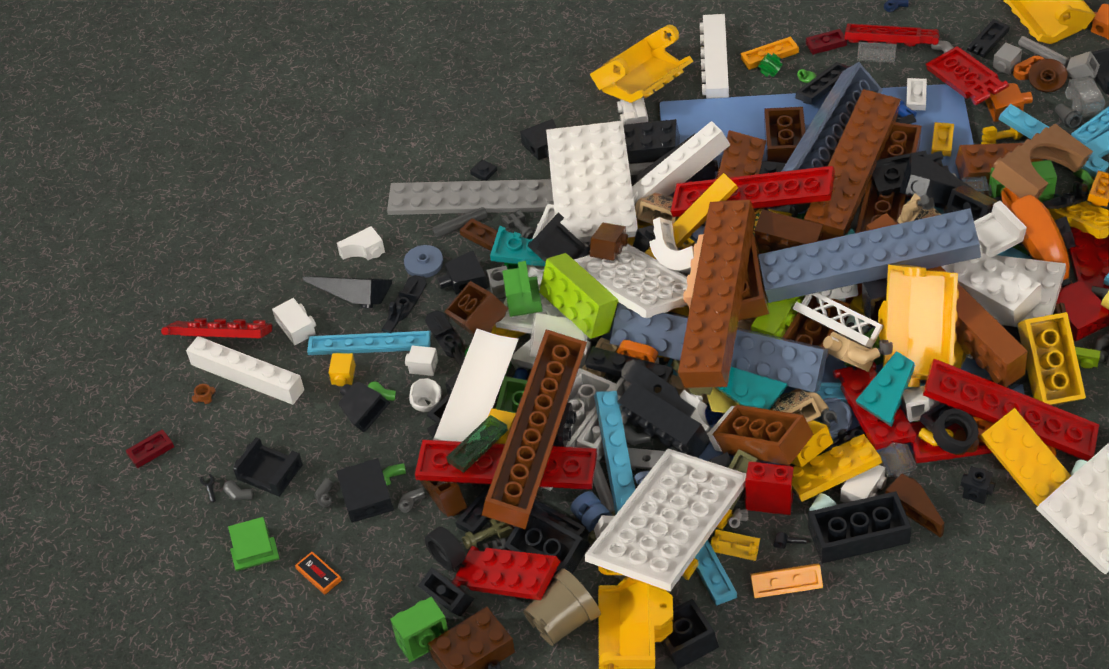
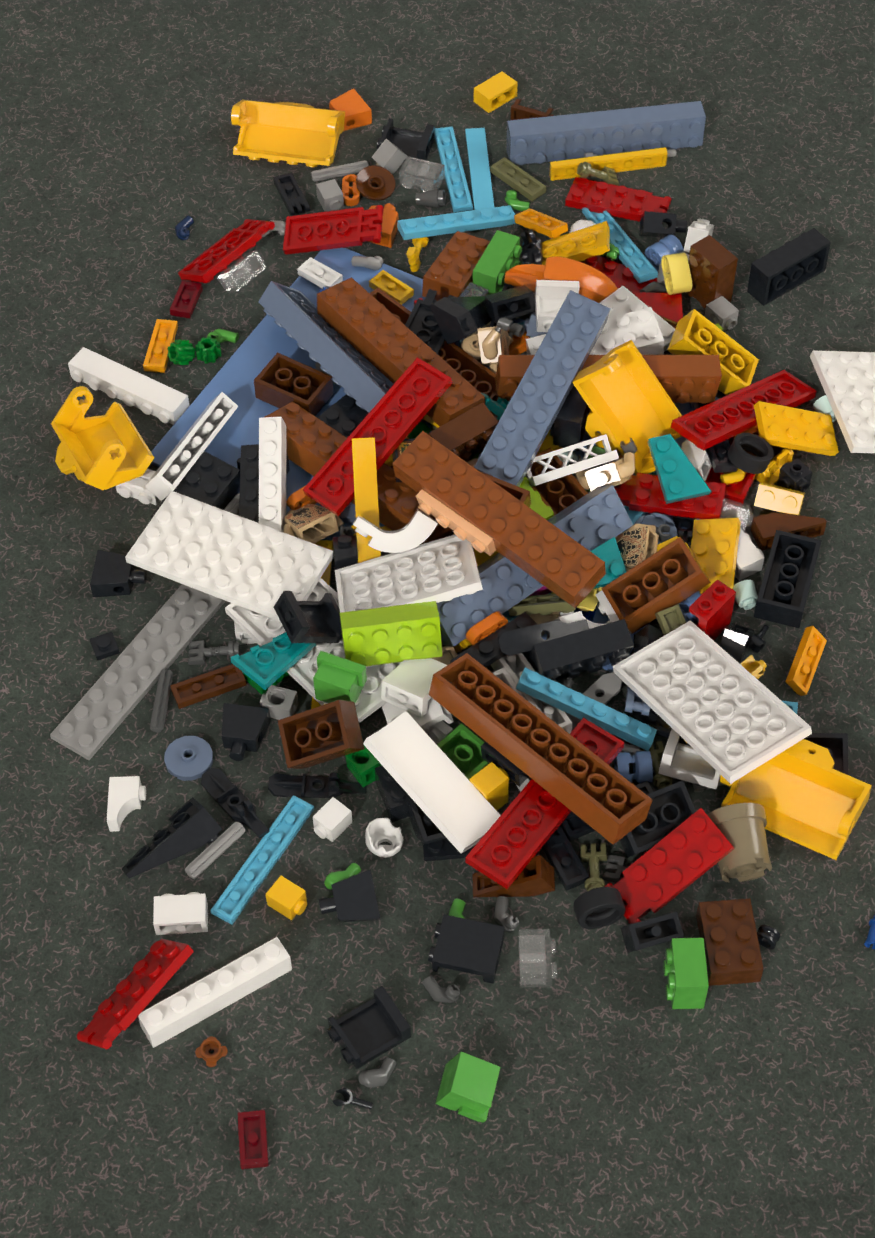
camera: 65 degrees left, 5 degrees up
(318, 573) = (541, 1042): tile -> none
(358, 314) = (215, 850): none -> light grey axle
(382, 533) = (535, 958): none -> clear brick
(477, 443) = (513, 809): clear green plate -> none
(608, 241) = (336, 577): reddish brown brick -> none
(682, 110) = (191, 446): none -> white brick
(766, 522) = (736, 640): none -> black slope
(786, 78) = (208, 350): none -> green gear
(821, 84) = (244, 328): black plate -> none
(942, 484) = (779, 499): none -> brick
(956, 114) = (372, 263): none -> light grey arm
(965, 464) = (772, 472): none -> yellow hinge
(1053, 144) = (504, 253): medium nougat arch -> none
(1085, 176) = (511, 227): bright green arm -> none

